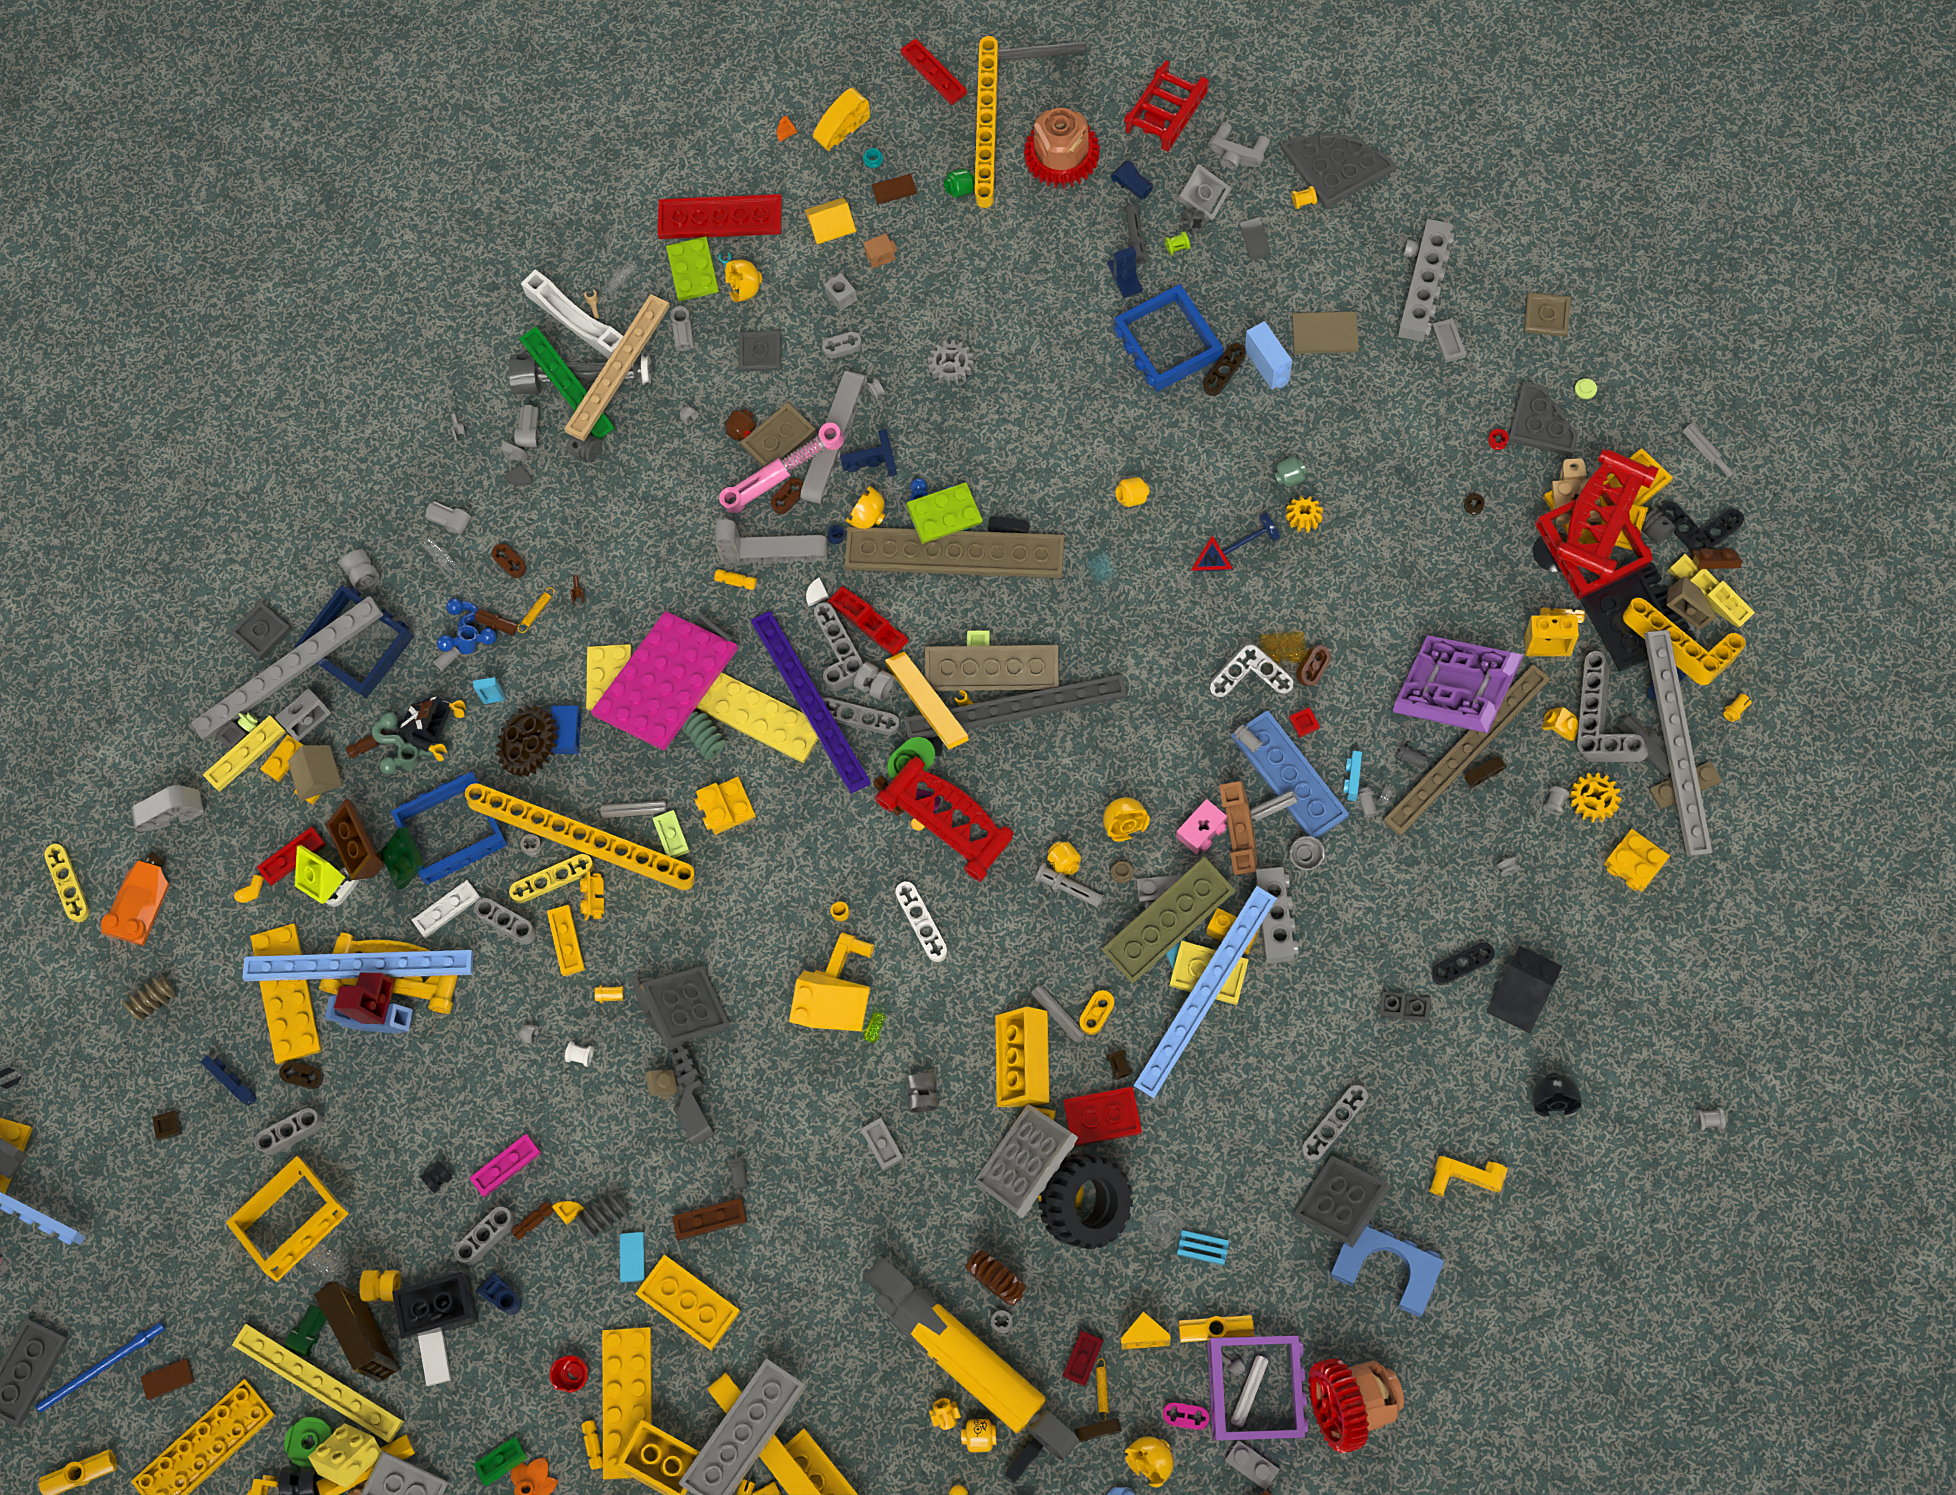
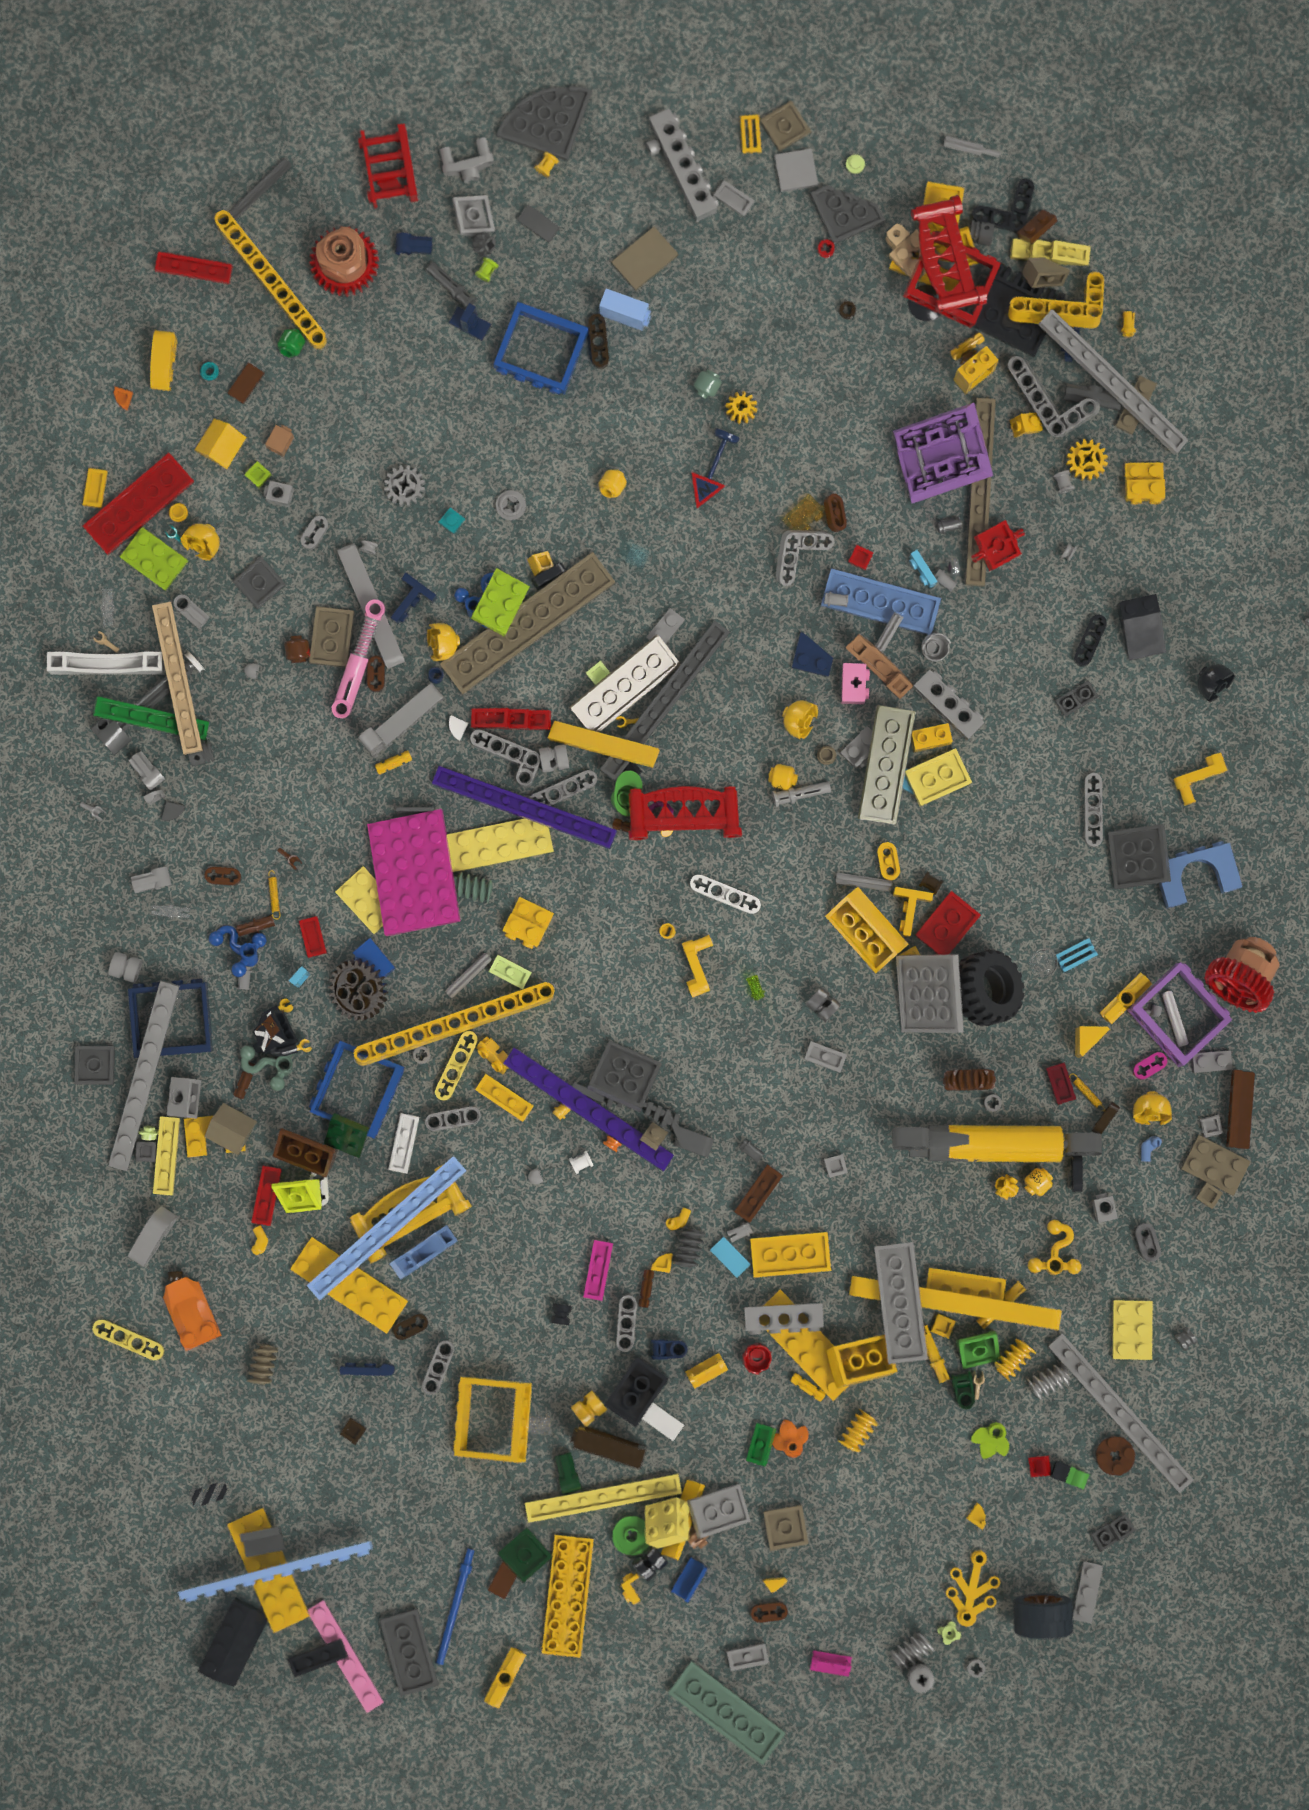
camera: 50 degrees left, 15 degrees up
(200, 1373) = (524, 1555): none -> dark green plate
(368, 999) = (417, 1243): dark red brick -> none
(515, 1345) = (706, 1370): none -> yellow hinge
(534, 670) = (312, 937): none -> red tile
(614, 1183) = (680, 1221): none -> yellow arm
(621, 1060) = (612, 1143): none -> orange bush
(626, 1008) = (586, 1108): none -> dark purple plate
(658, 1373) = (814, 1311): none -> light grey brick
(662, 1241) = (741, 1231): none -> light grey pin
(697, 180) = (95, 488): none -> yellow tile
(745, 247) = (178, 512): none -> yellow plate
(802, 1254) = (835, 1166): none -> light grey plate
(828, 1002) = (715, 996): yellow slope -> none
(837, 264) = (258, 474): none -> lime plate
(966, 421) = (452, 520): none -> teal plate
(1012, 509) = (540, 562): none -> yellow slope
(1023, 438) = (502, 503): none -> light grey gear
(1075, 649) = (667, 626): none -> light grey plate
(1080, 1070) = (909, 907): none -> yellow bracket
(1183, 775) = (811, 657): none -> dark blue wing
(1205, 992) = (949, 792): light blue plate -> none
(1443, 807) = (997, 545): none -> red plate
(1485, 771) = (1004, 498): dark brown beam -> none
(1500, 312) = (750, 150): none -> yellow tile
(1526, 356) = (796, 170): none -> light grey tile

